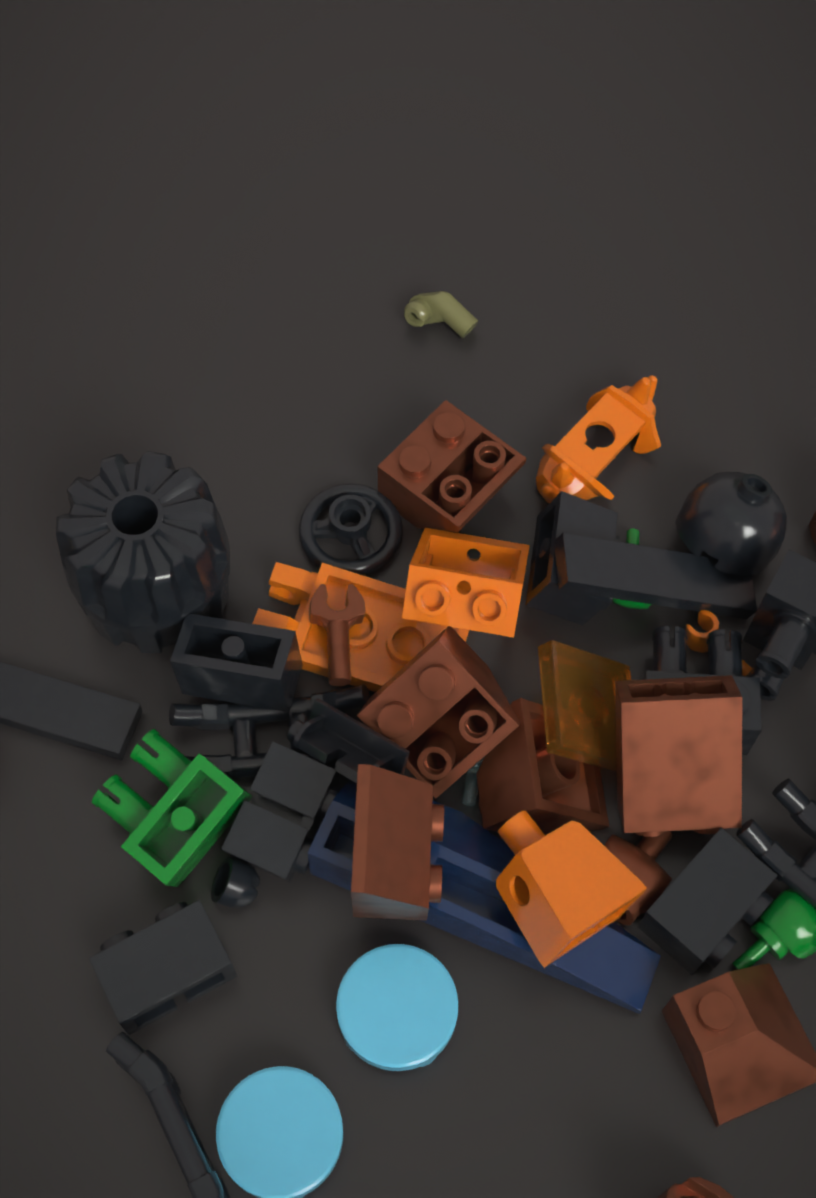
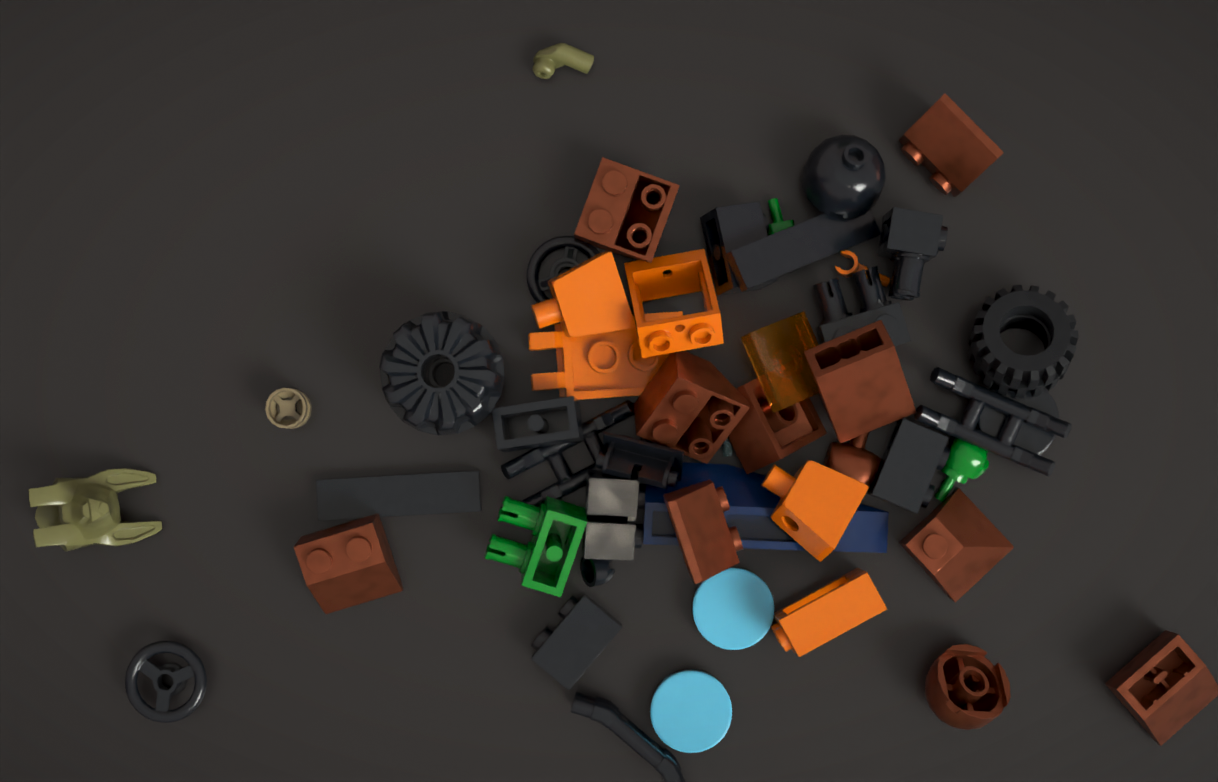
camera: 20 degrees left, 25 degrees up
(337, 627) = (595, 370): copper bar -> none
(361, 538) = (586, 299): none -> orange torso
(530, 1051) = (827, 612): none -> orange window
(575, 466) = (734, 103): orange piece -> none

